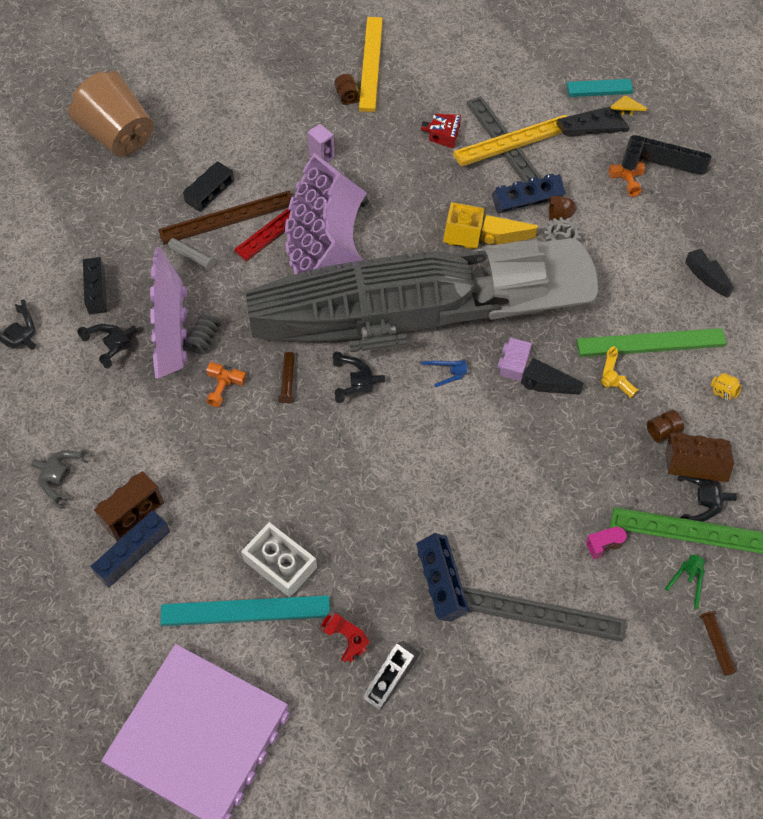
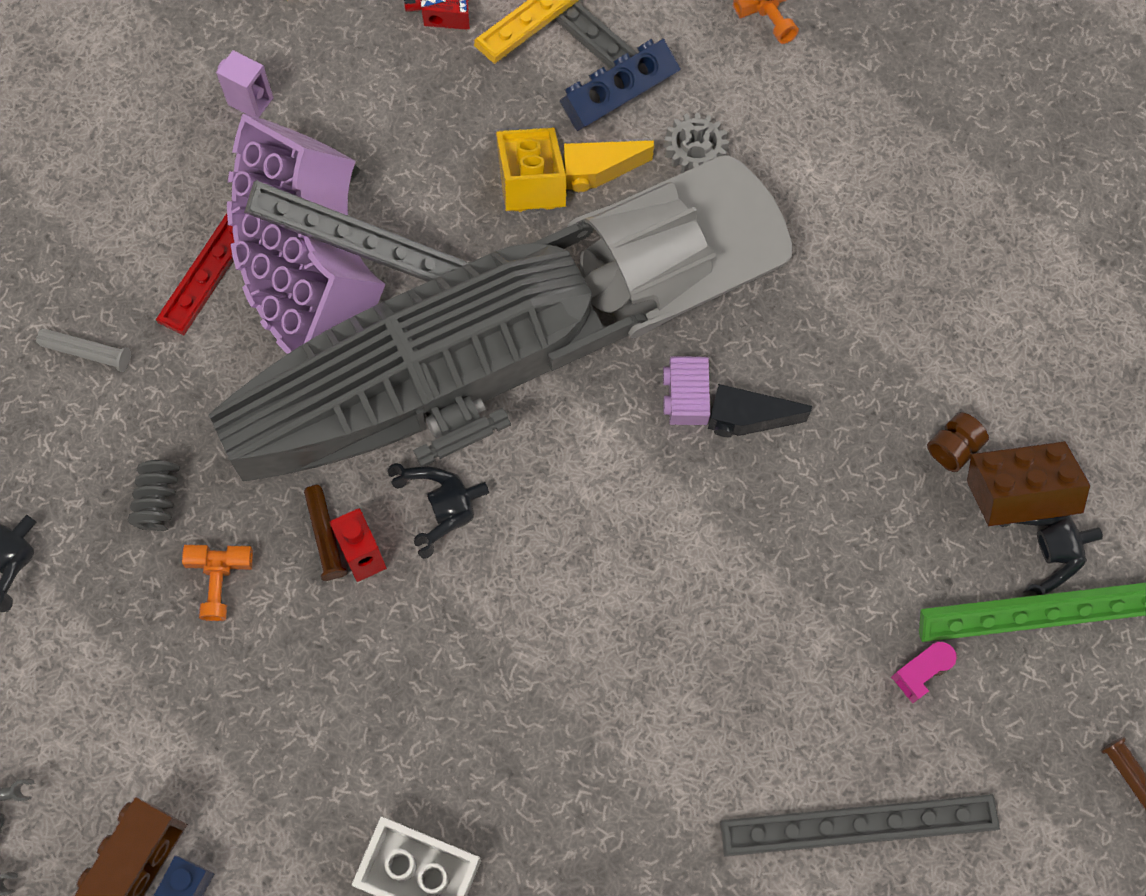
camera: 20 degrees left, 10 degrees up
(167, 316) = (82, 489): lavender brick -> none
(208, 186) = (72, 213): black brick -> none
(225, 217) = (121, 263): reddish brown tile -> none
(303, 382) = (358, 543): none -> red torso
(347, 222) = (348, 233): none -> tile
(442, 577) = (707, 824): dark blue brick -> none
(457, 368) = (597, 432): blue plant -> none
(561, 207) = (678, 96): reddish brown brick -> none
(612, 379) = (850, 381): yellow pin -> none
(652, 342) = (889, 298): bright green tile -> none
(693, 568) = (1070, 671): green plant -> none
(709, 272) = (946, 149): black slope -> none
(726, 386) = (1029, 344): yellow head -> none

